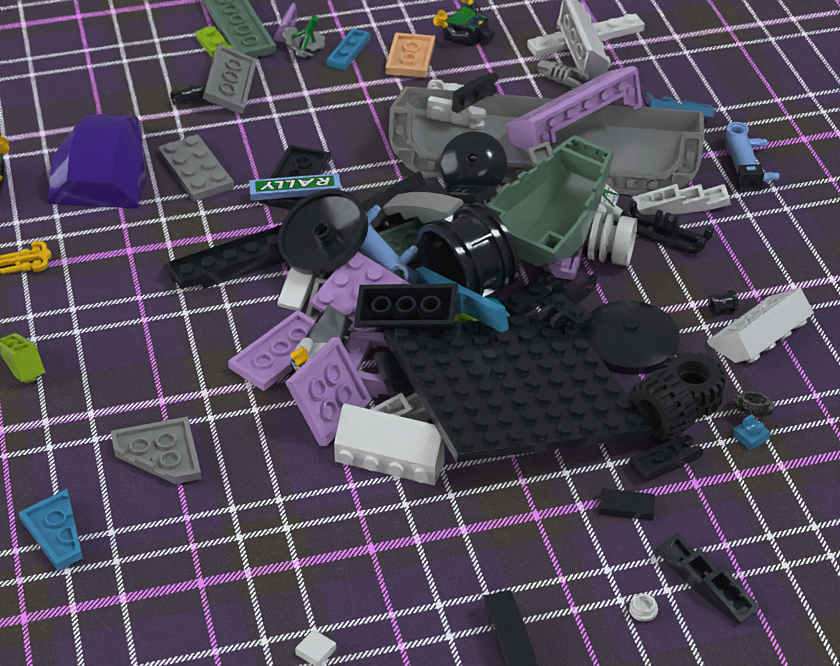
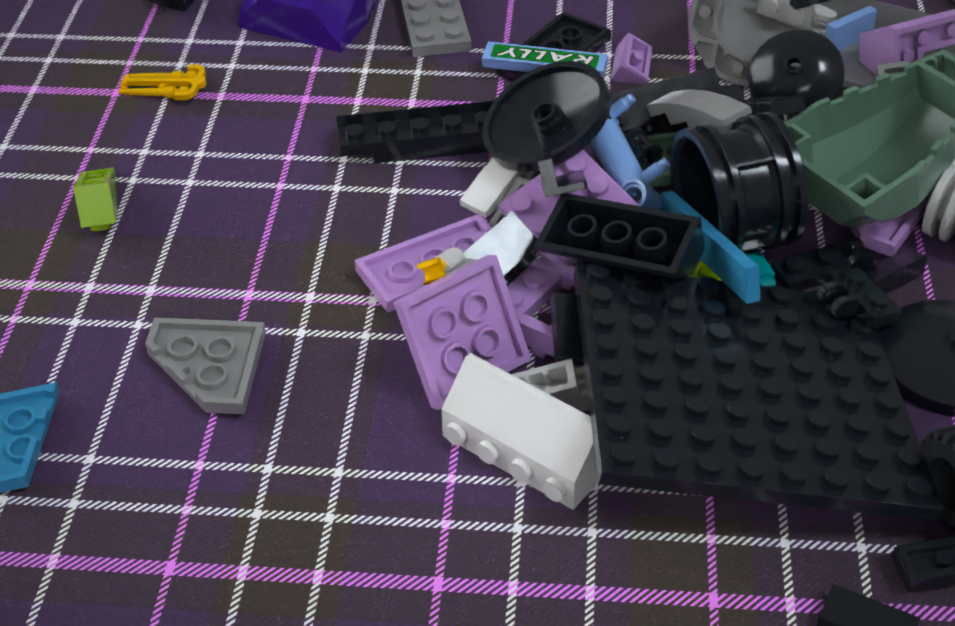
camera: 20 degrees right, 0 degrees up
(351, 278) = (560, 184): none -> black panel
(353, 173) = (632, 61): none -> lavender slope
(392, 239) = (643, 147): none -> black bush
(497, 119) = (847, 29): none -> light blue tile

